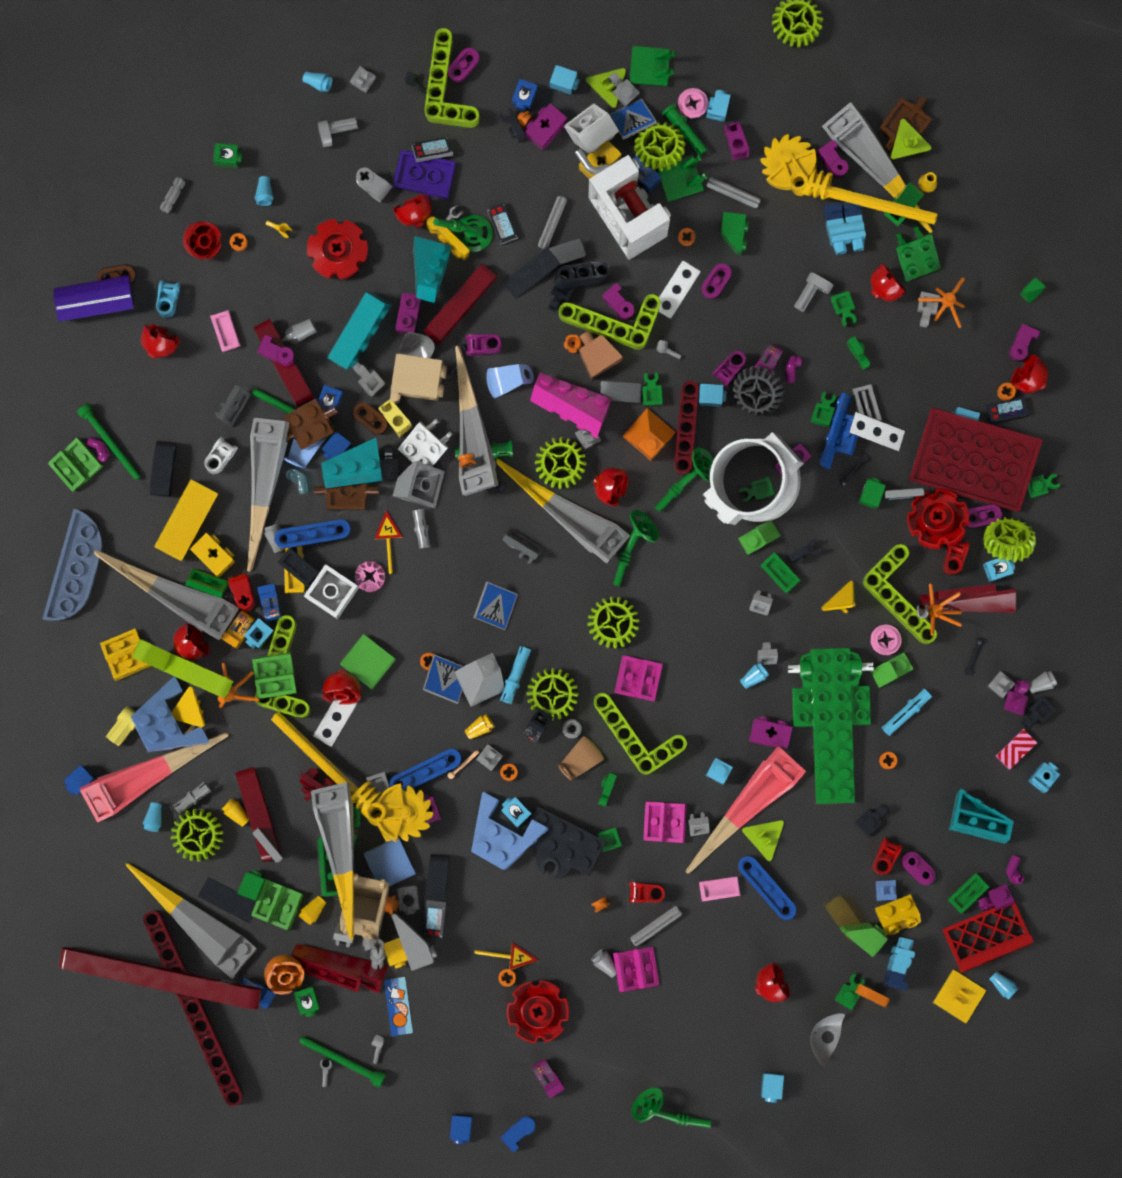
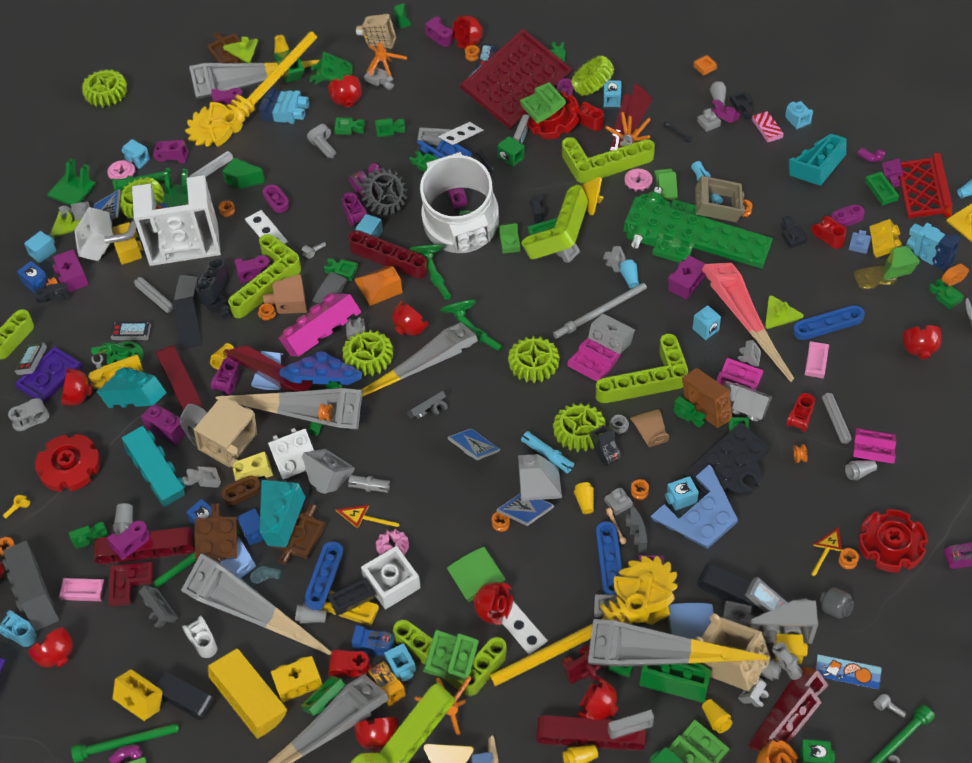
camera: 65 degrees left, 30 degrees down
(146, 433) = (137, 694): none -> yellow brick
(208, 285) = (29, 585): none -> dark grey wedge
(247, 362) = (124, 577): none -> dark red plate
(270, 306) = (86, 535): none -> green plate
(284, 811) = (599, 701): none -> red cylinder
(455, 979) = (836, 603): none -> dark grey head
(468, 781) = (637, 529): none -> dark grey slope
(499, 384) = (265, 368): none -> dark red wedge
(505, 327) = (218, 357): none -> yellow cone
(519, 430) = (321, 369): none -> blue plate
(620, 802) = (716, 406): none -> dark orange window
(638, 837) = (748, 401): none -> light grey hinge
(667, 641) = (571, 326): none -> light grey bar
(676, 678) = (611, 333): none -> light grey brick
(784, 594) = (565, 230): none -> lime beam
(871, 716) = (720, 187): none -> dark tan window
(943, 504) = (543, 103): none -> bright green slope
(992, 275) = (378, 30): none -> tan torso
(1083, 653) = (705, 65): none -> orange plate

